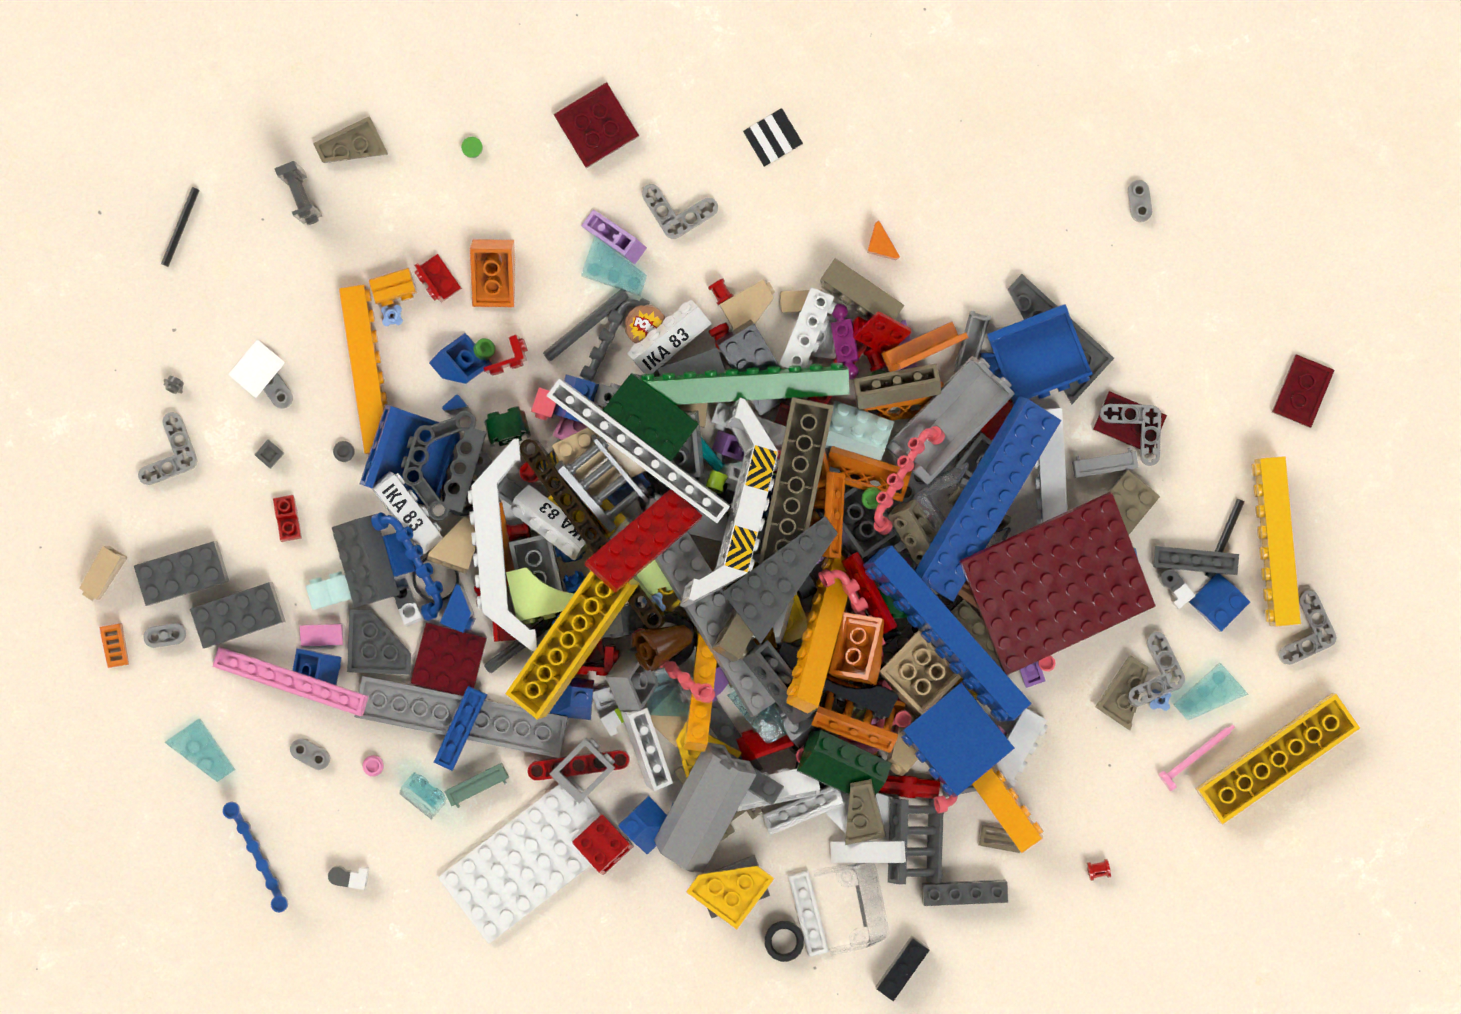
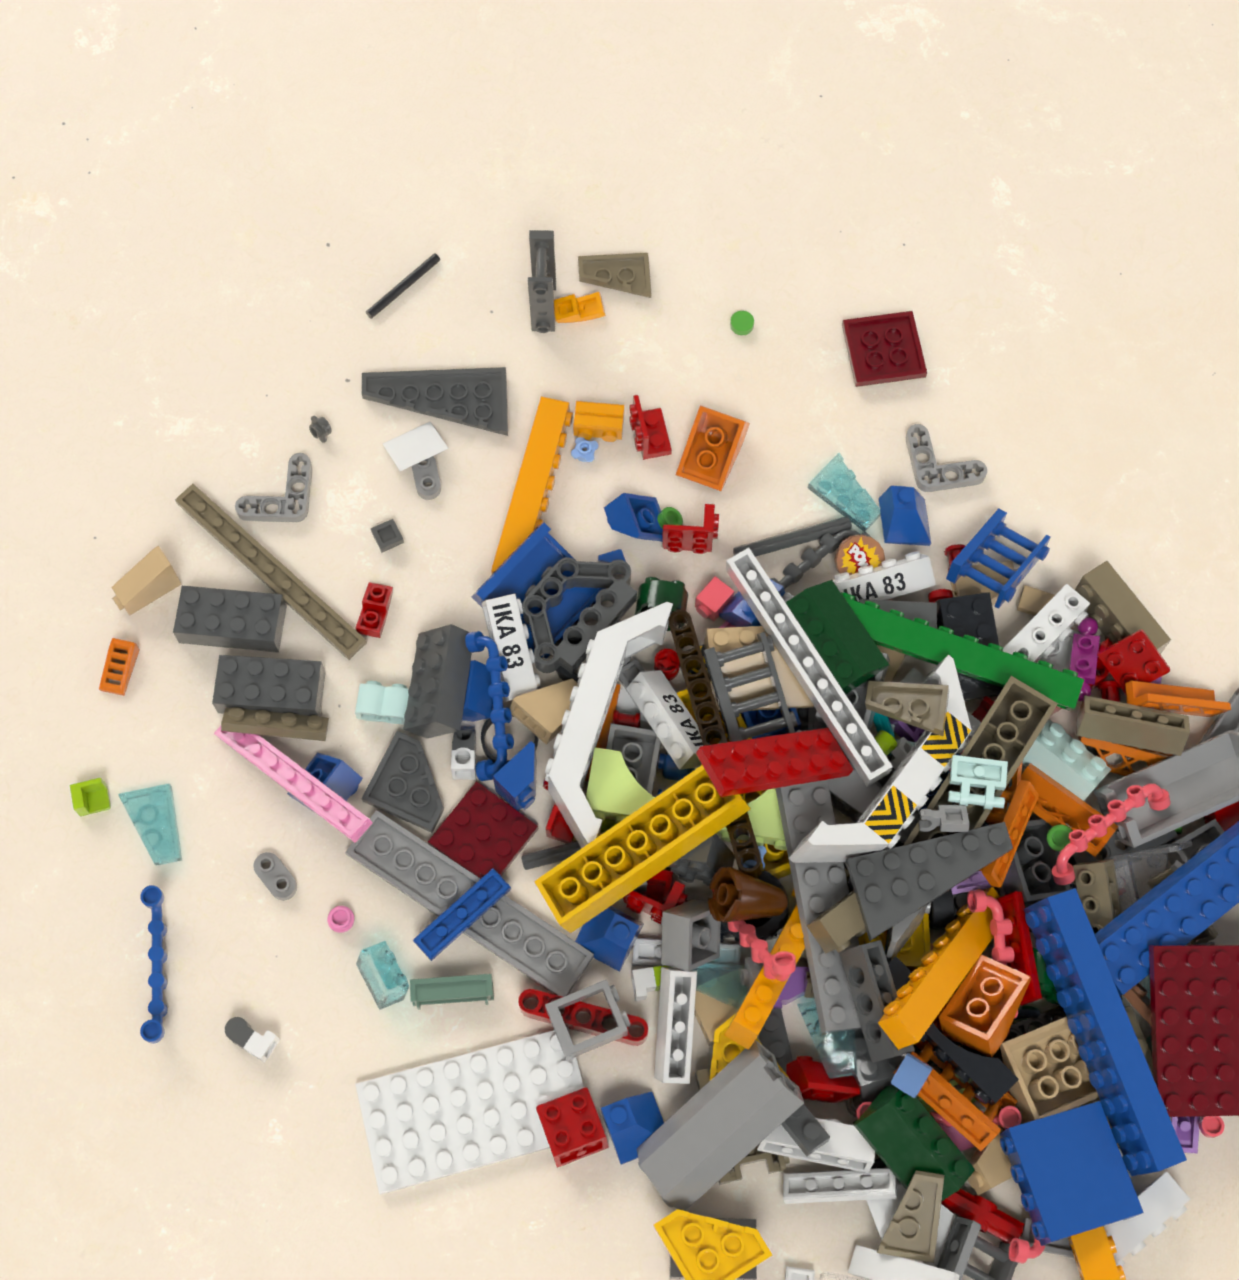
camera: 20 degrees right, 20 degrees down
(145, 753) = (90, 797): none -> lime panel
(165, 635) = (180, 678): light grey plate -> none
(191, 520) = (271, 571): none -> dark tan plate
(256, 642) = (274, 724): none -> dark tan plate
(268, 310) = (457, 395): none -> dark grey wing
(321, 635) = (352, 747): bright pink slope -> none
(333, 189) = (573, 309): none -> light orange slope
(343, 451) = (469, 566): dark grey tile -> none
(614, 236) = (869, 467): medium lavender slope -> none
(667, 274) = (904, 517): none -> blue slope
(725, 450) = (910, 703): none -> dark tan wing
(736, 271) = (986, 540): none -> blue fence
(773, 137) = (1071, 432): black sticker -> none
(784, 530) = (949, 818): none -> light grey plate
(793, 487) = (978, 773): none -> light aqua plate
(823, 725) = (911, 1075): none -> medium blue slope
(881, 244) = (1159, 579): orange slope -> none

